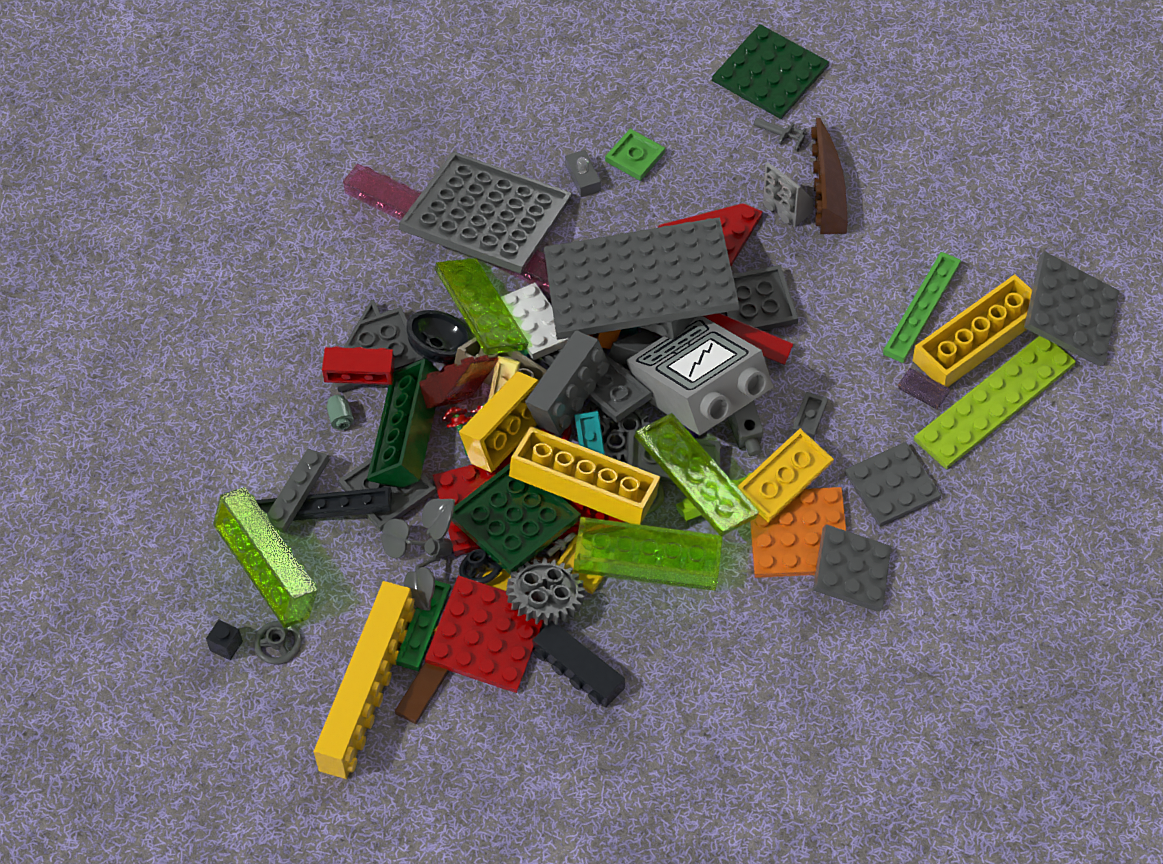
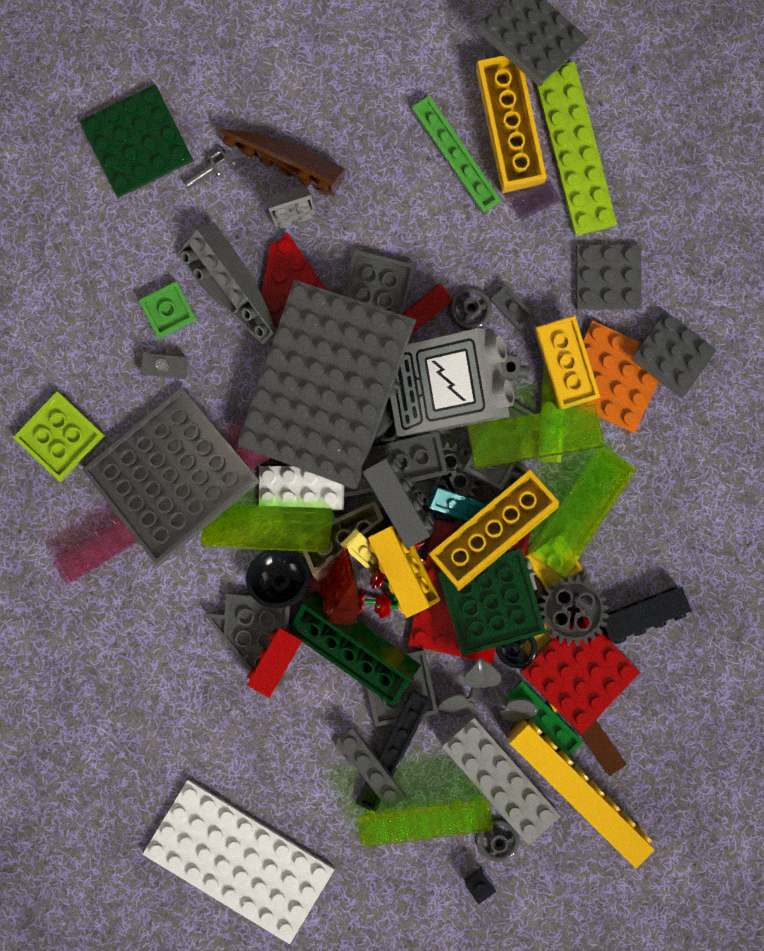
camera: 70 degrees left, 30 degrees up
(148, 432) = (239, 861): none -> white plate
(339, 412) = (307, 694): sand green brick -> none
(341, 610) = (500, 779): none -> light grey brick
(473, 126) = (59, 436): none -> lime plate
(692, 179) = (227, 280): none -> dark grey wedge
(787, 382) = (487, 306): none -> dark grey piece

